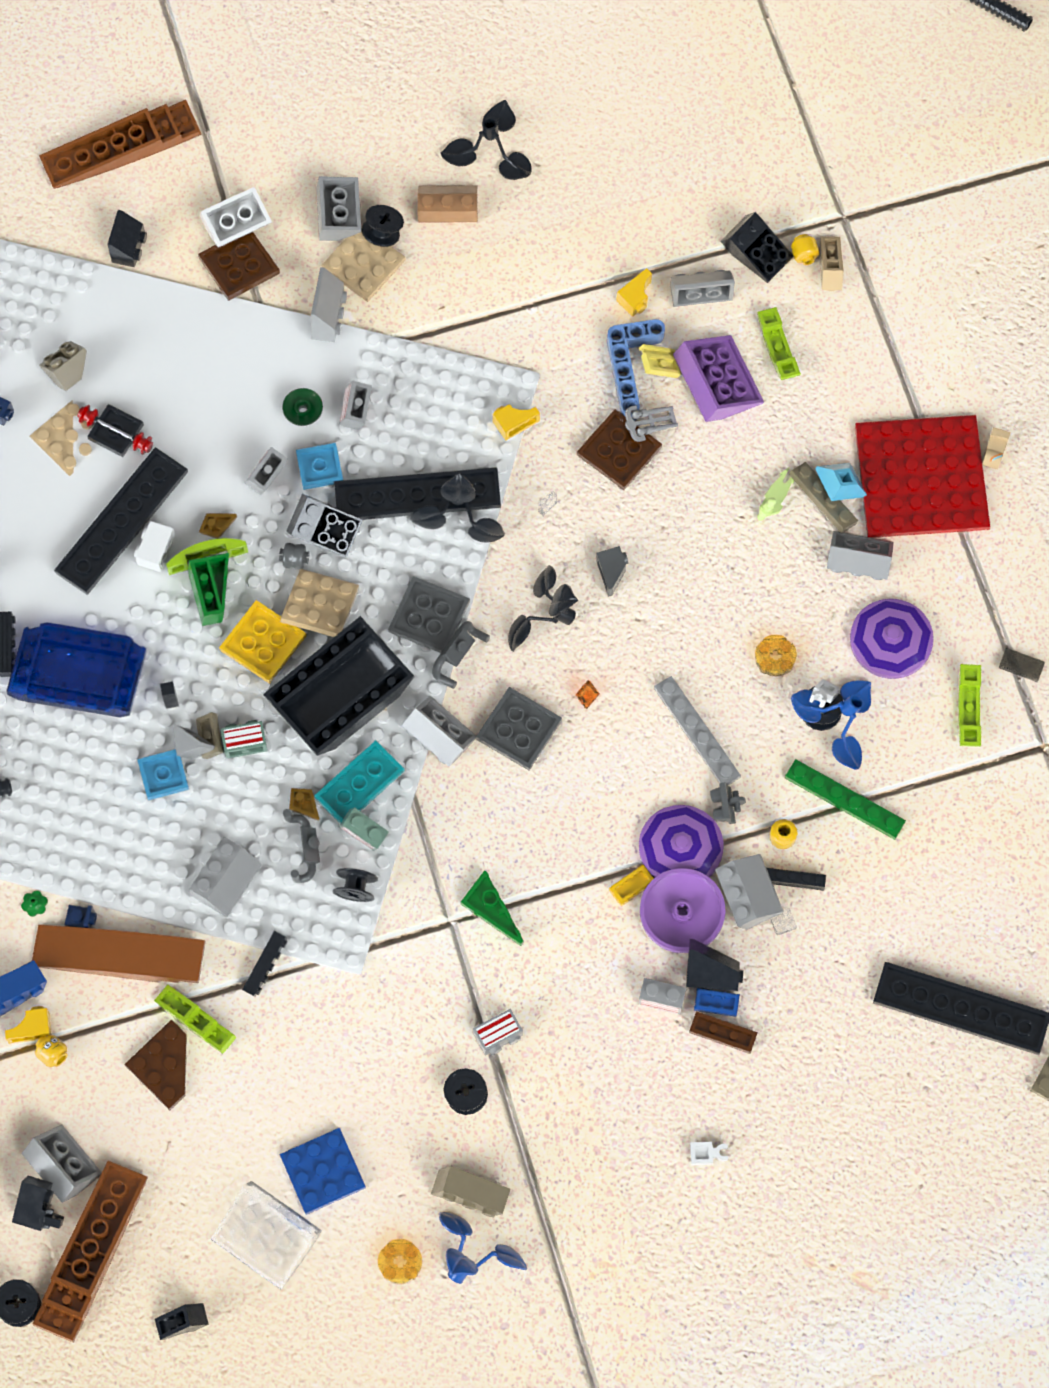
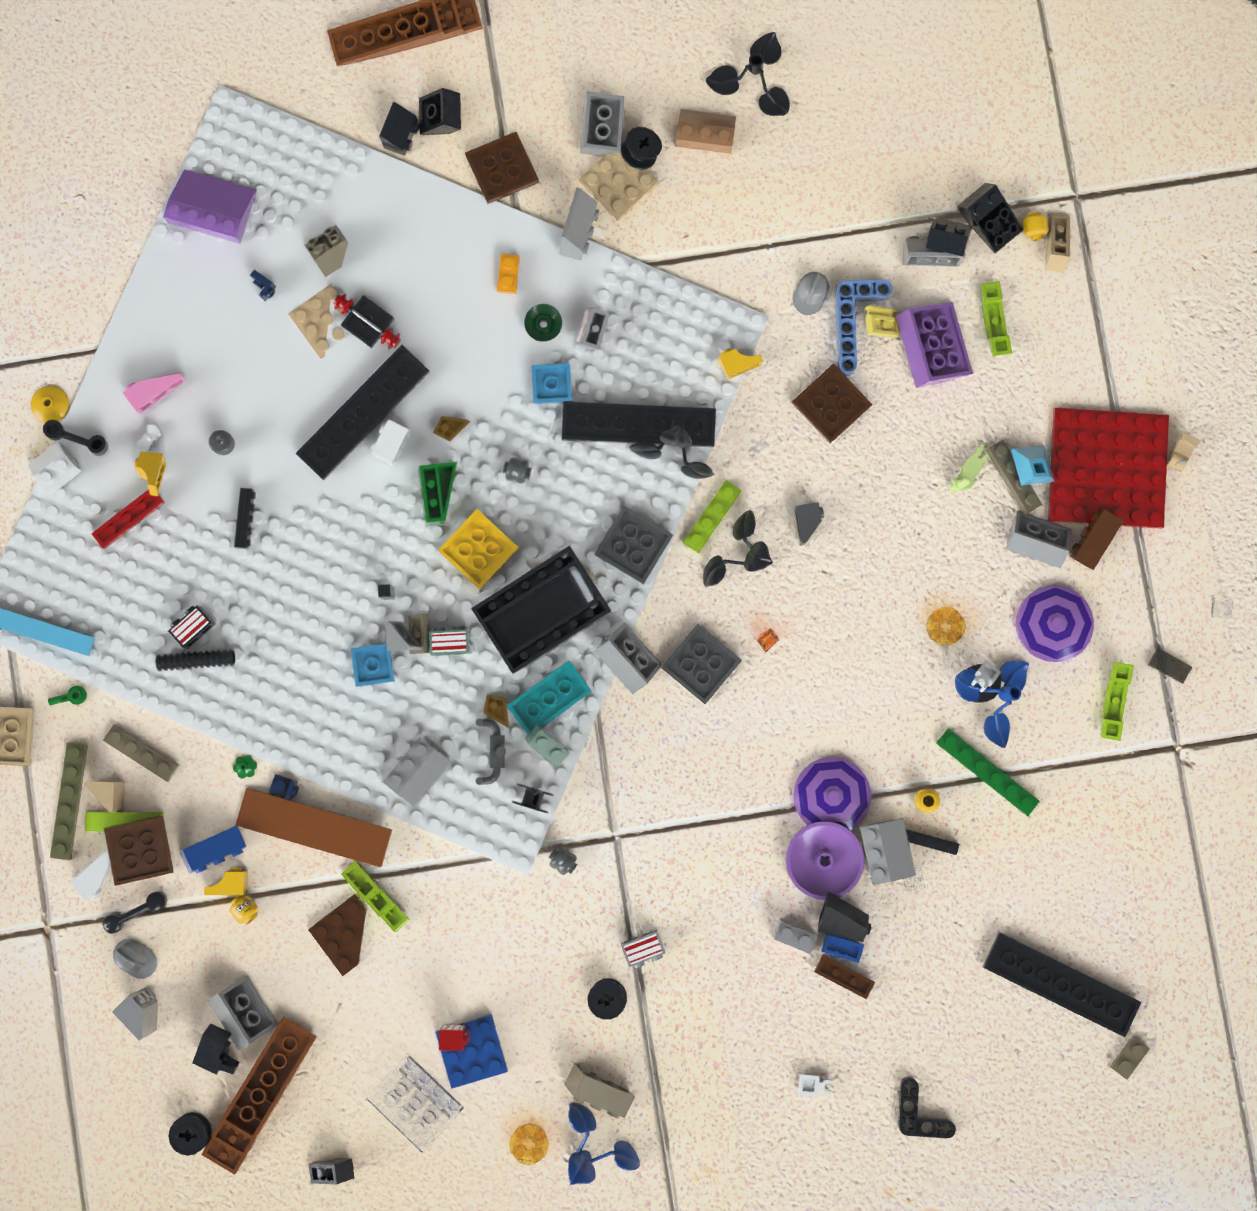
camera: 10 degrees right, 15 degrees up
(77, 669) = (306, 552): clear blue slope -> none
(167, 219) = (440, 112): none -> black slope
(203, 549) = (412, 460): lime slope -> none
(235, 217) = (504, 121): white slope -> none
(259, 365) = (508, 274): none -> light orange plate
(265, 964) = (443, 856): black piece -> none
(266, 470) = (501, 383): light grey brick -> none
(301, 1147) = (453, 1037): none -> red brick
(319, 603) = (535, 520): tan plate -> none
(324, 525) = (547, 444): slope -> none
(397, 951) = (563, 861): none -> dark grey piece
(456, 650) = (655, 583): dark grey piece -> none
(486, 904) = (650, 828): green wing -> none
(509, 579) = (712, 516): none -> lime plate
(581, 345) = (811, 293): none -> light grey piece
(631, 424) = (846, 383): light grey piece -> none
(631, 885) = (782, 826): yellow tile -> none
(633, 296) = (867, 251): yellow arch -> none
(697, 731) = (862, 689): light grey plate -> none
(714, 265) = (948, 236): none -> black slope
(729, 803) = (882, 759): dark grey hips -> none
(828, 1177) = (917, 1122): none -> black beam
(919, 544) = (1096, 538): none -> reddish brown brick

